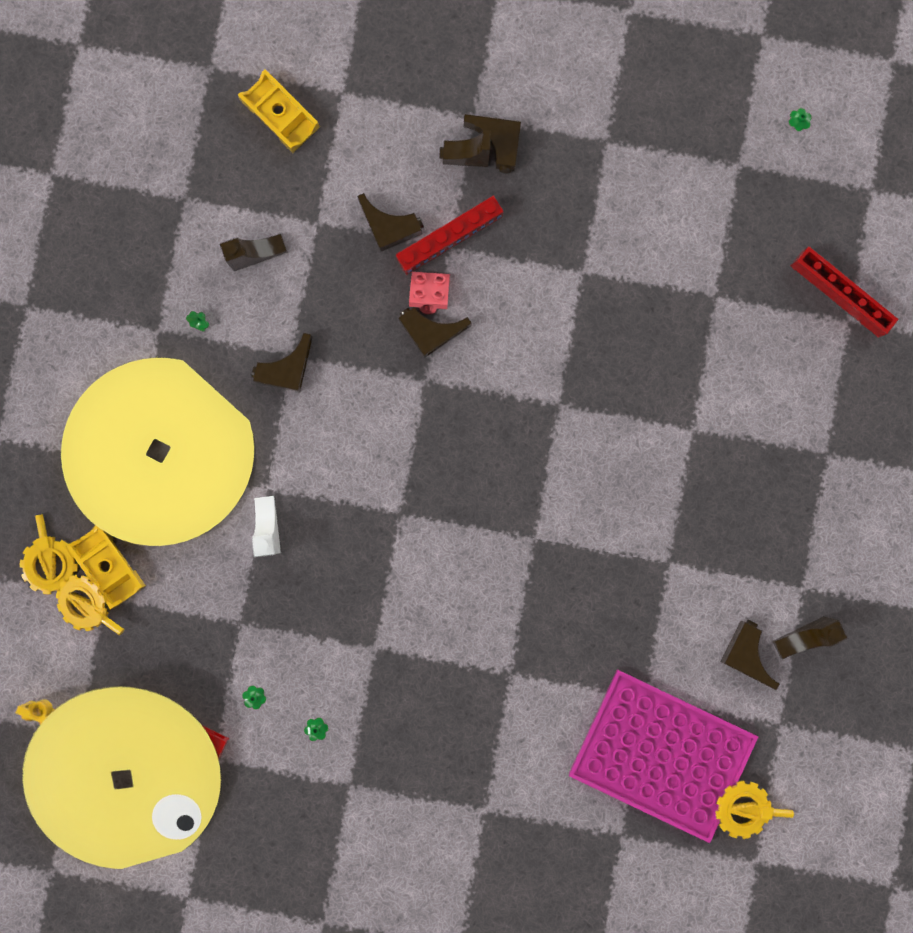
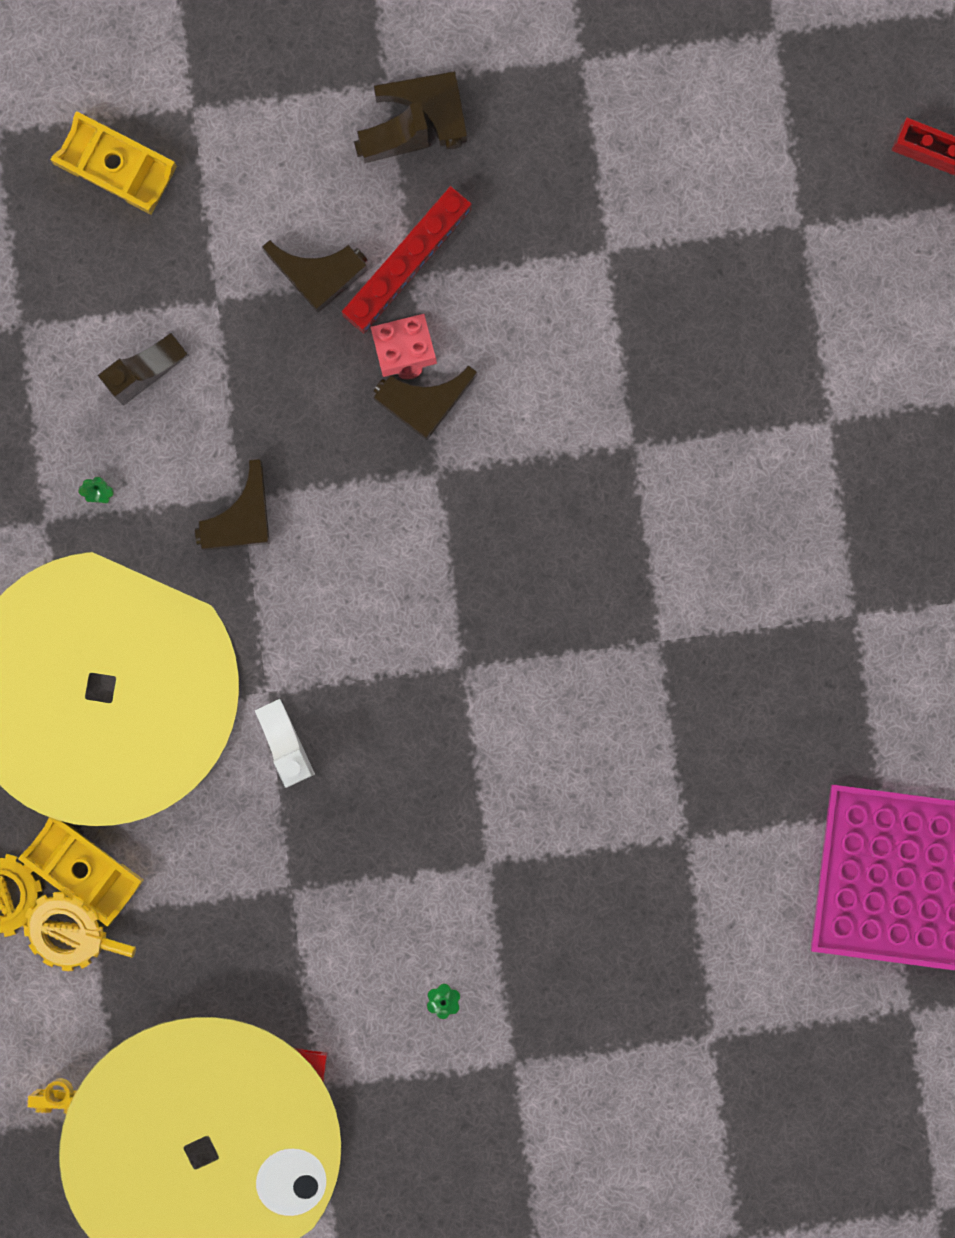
camera: 15 degrees left, 0 degrees up
(257, 693) = (347, 978): green plant -> none

